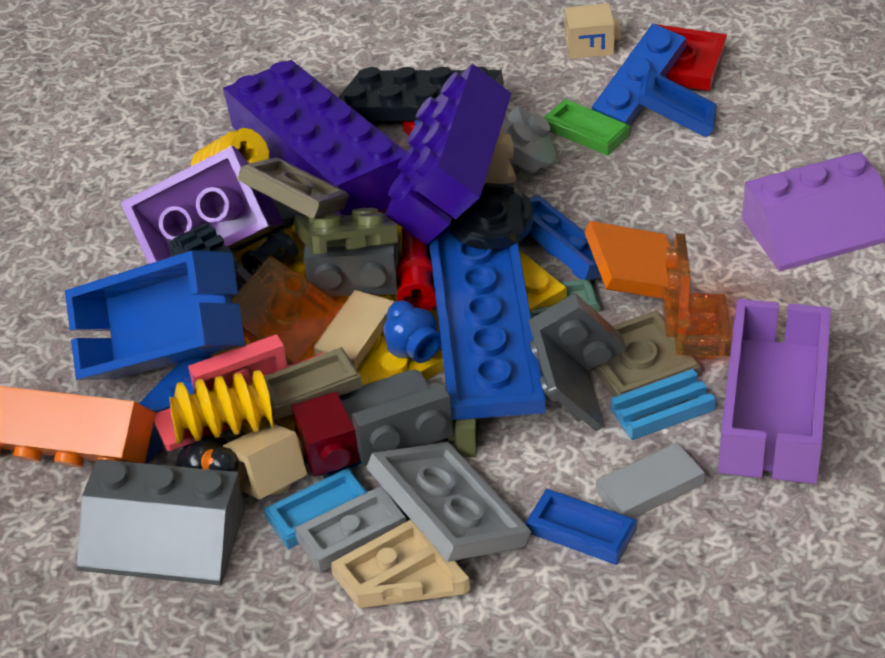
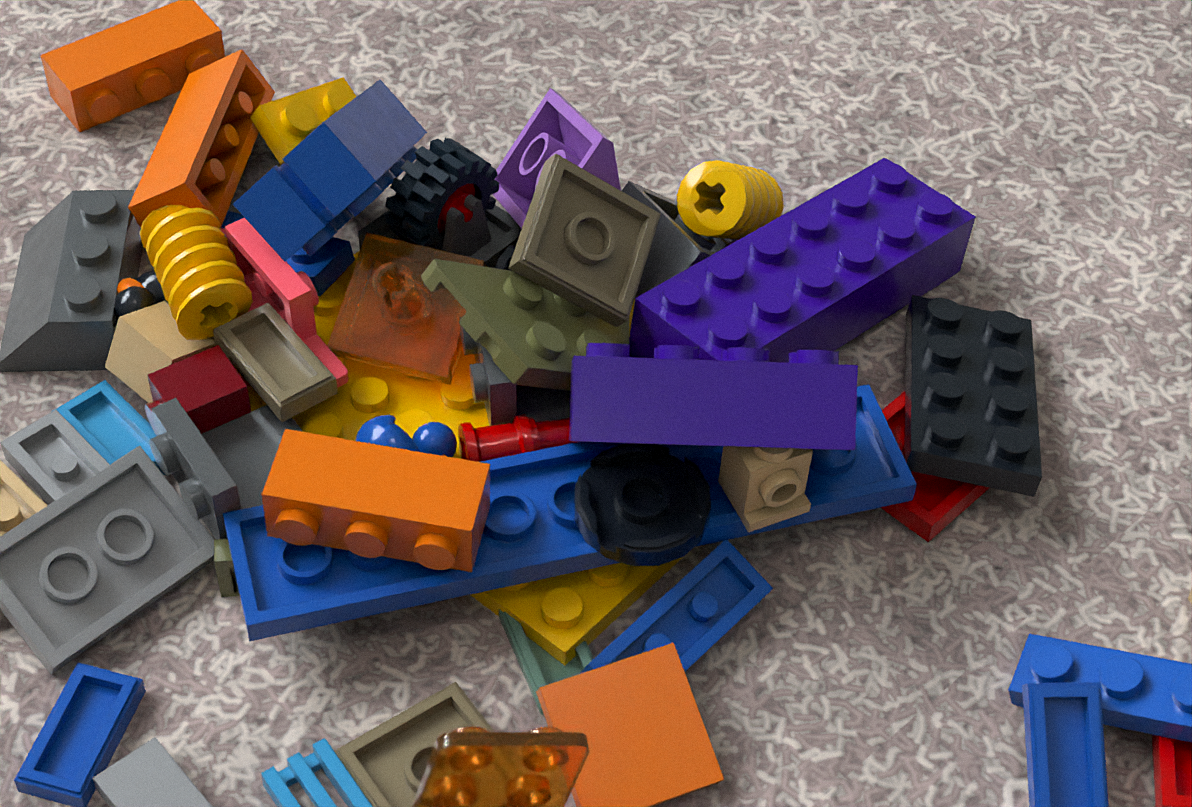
camera: 75 degrees right, 5 degrees up
(39, 369) = (293, 117): none -> yellow plate
(355, 326) = (407, 395): tan tile -> none
(473, 317) = (377, 500): none -> orange brick
(530, 139) = (873, 556): light grey plate -> none
(568, 344) = (333, 660): dark grey bracket -> none
(587, 127) = (990, 640): bright green tile -> none

